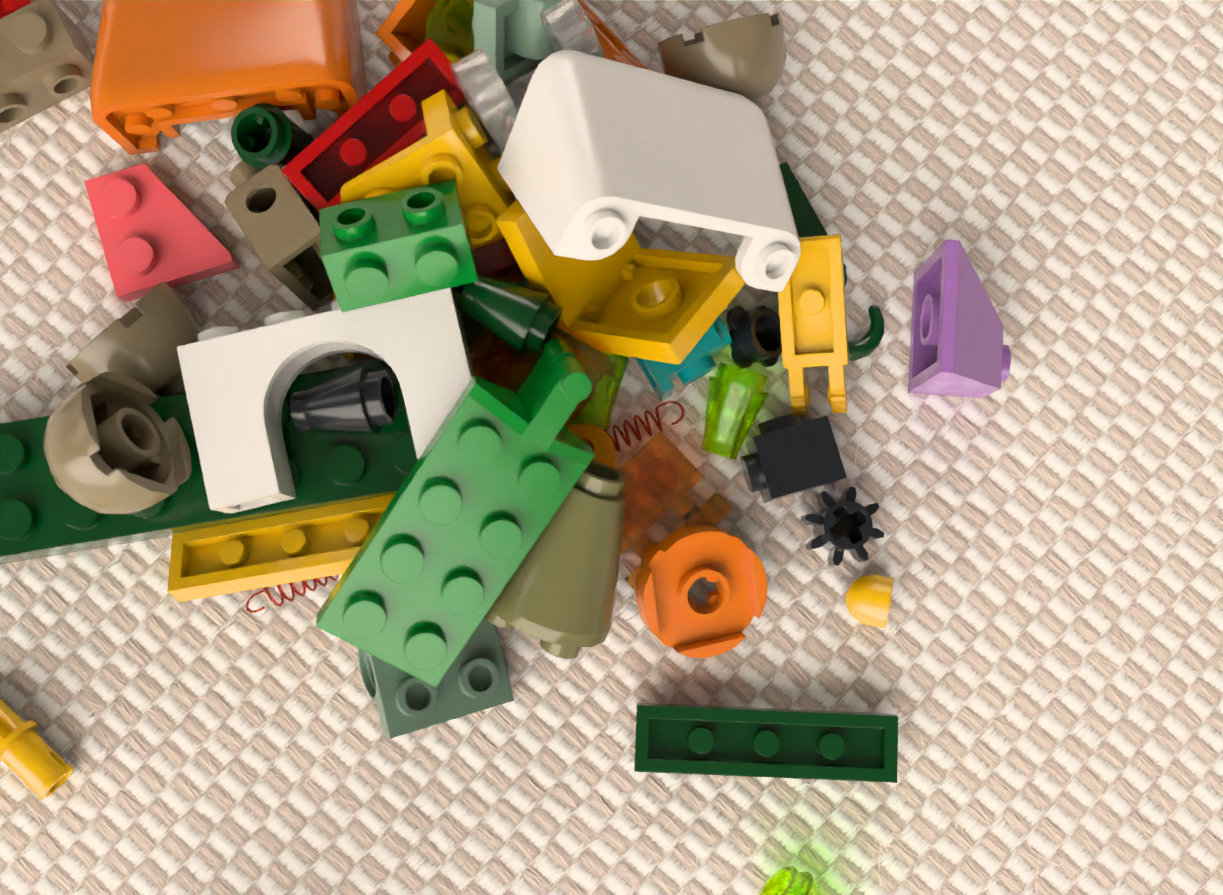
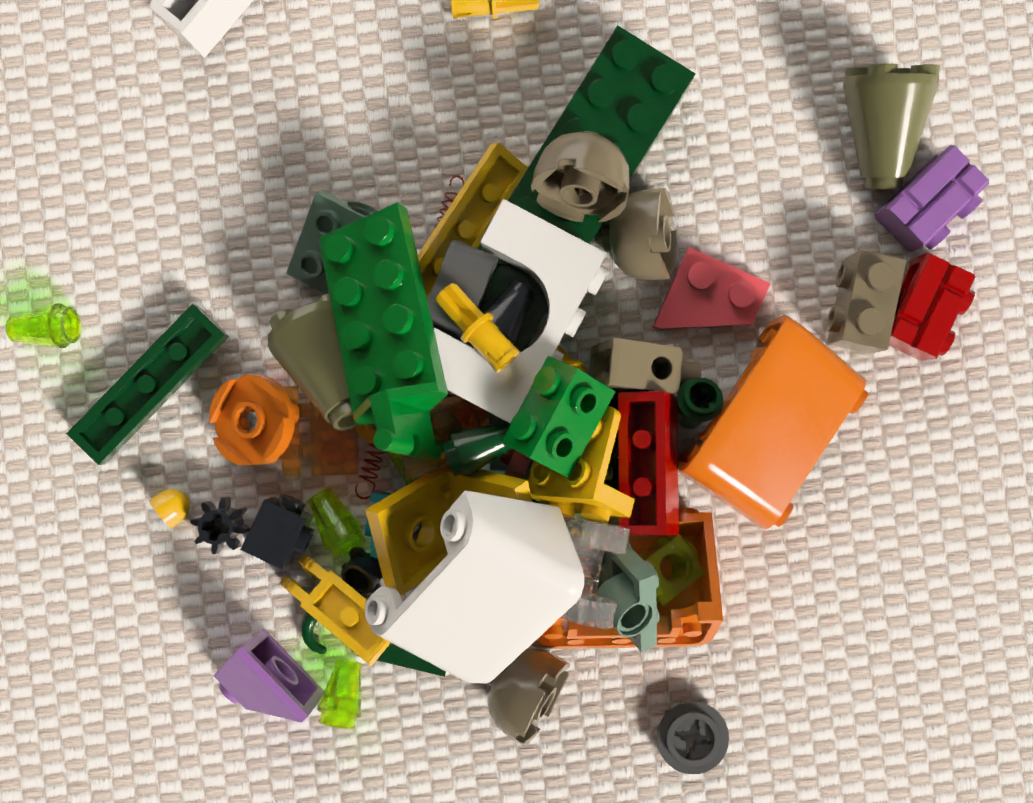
camera: 135 degrees right, 5 degrees up
(351, 476) = (468, 269): none -> dark grey axle
(375, 411) = (477, 328): none -> yellow axle
(899, 246) = (342, 695): none -> clear neon green cone

